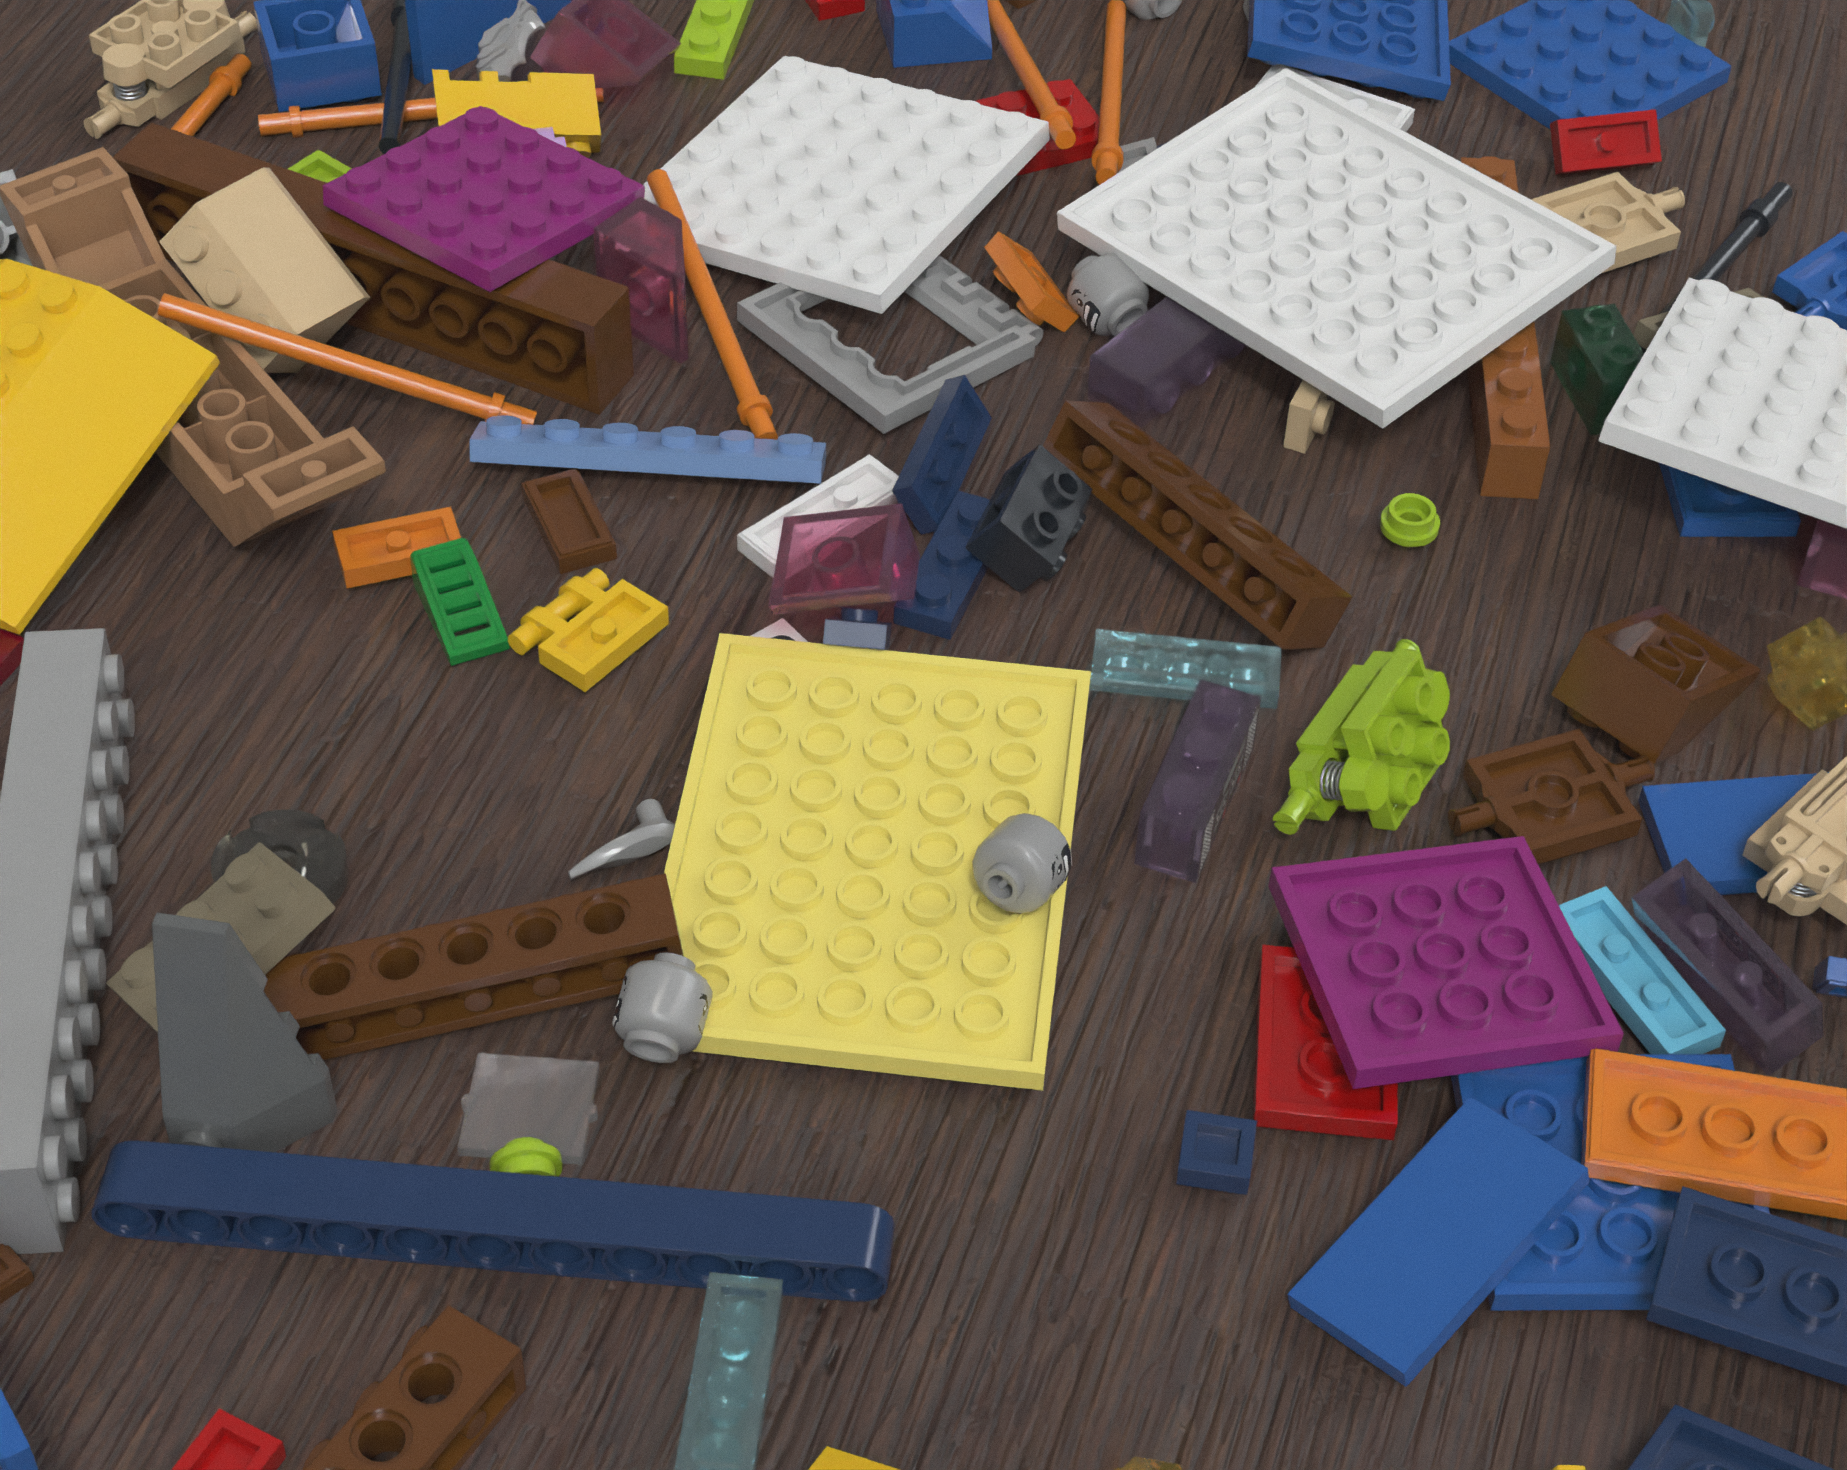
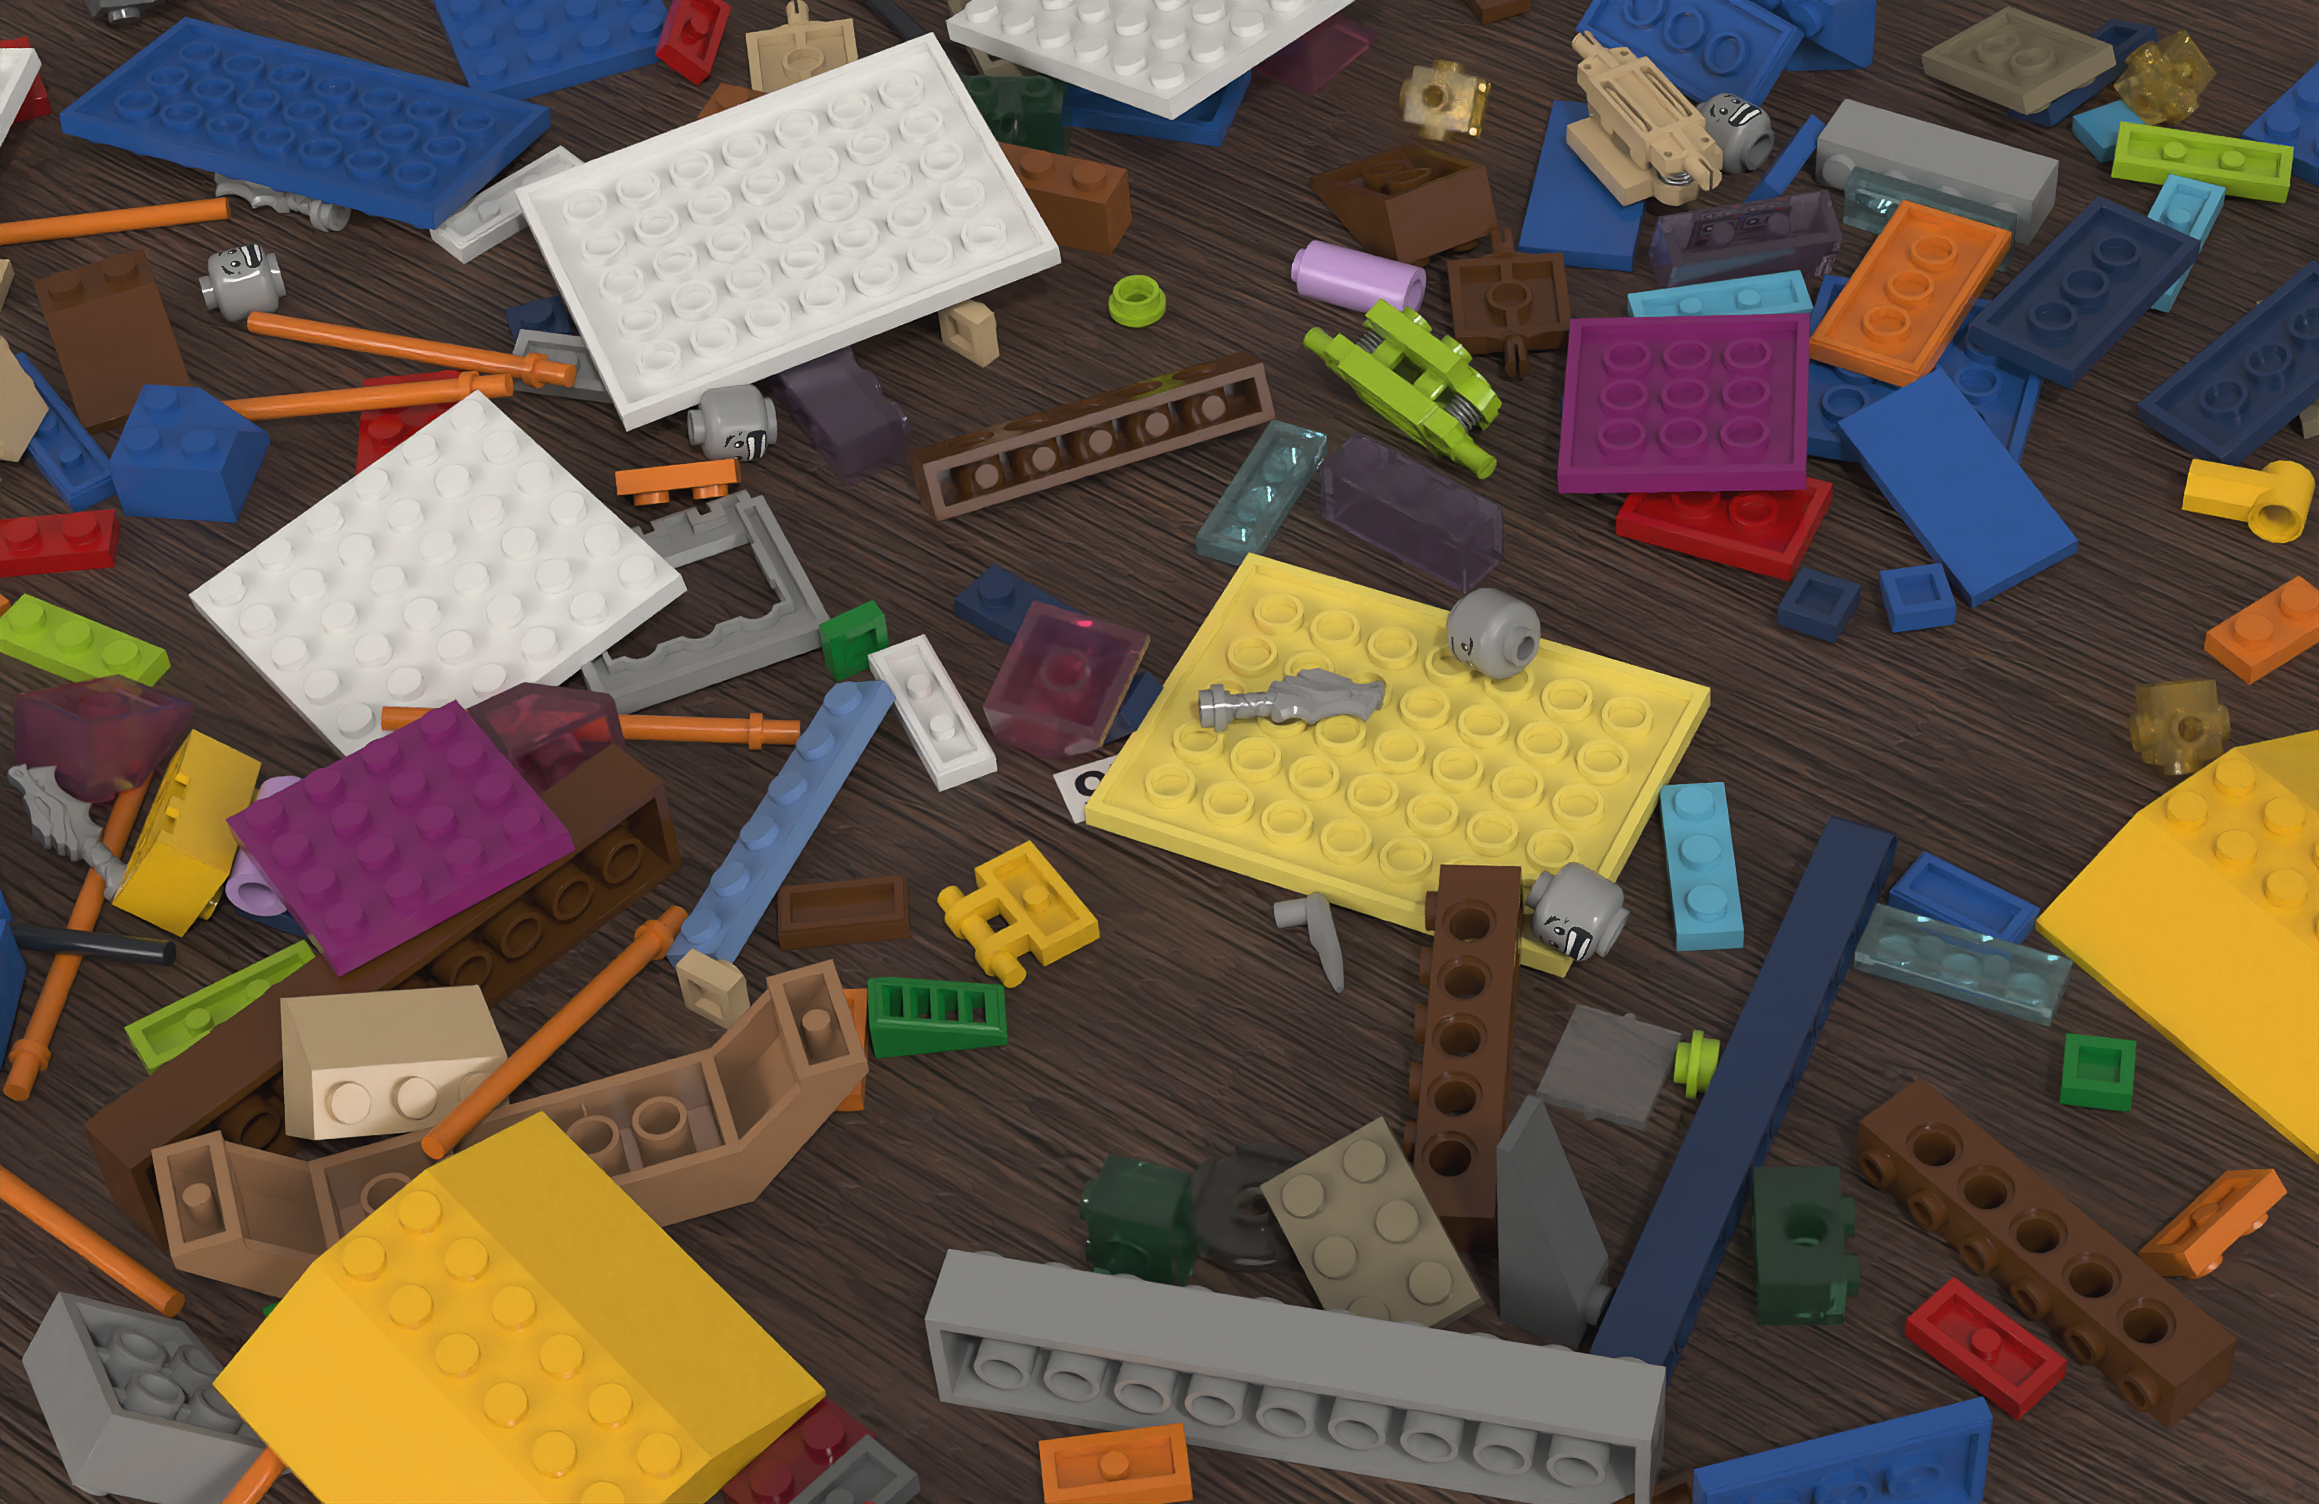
camera: 65 degrees left, 0 degrees up
(199, 776) = (1141, 1221): none -> clear green brick
(272, 1281) = (1795, 1280): none -> clear green brick
(442, 457) = (713, 988): none -> tan plate
(812, 1127) = (1701, 867): none -> medium azure plate
(826, 1375) = (1963, 900): none -> blue tile
(875, 433) = (851, 638): none -> green plate
(892, 743) = (1307, 696): none -> light grey piece
(942, 454) = (901, 599): dark blue plate -> none
(1030, 519) = (1035, 544): black brick -> none
(1264, 1241) = (1917, 597): none -> blue plate
(1516, 673) = (1356, 278): none -> lavender brick

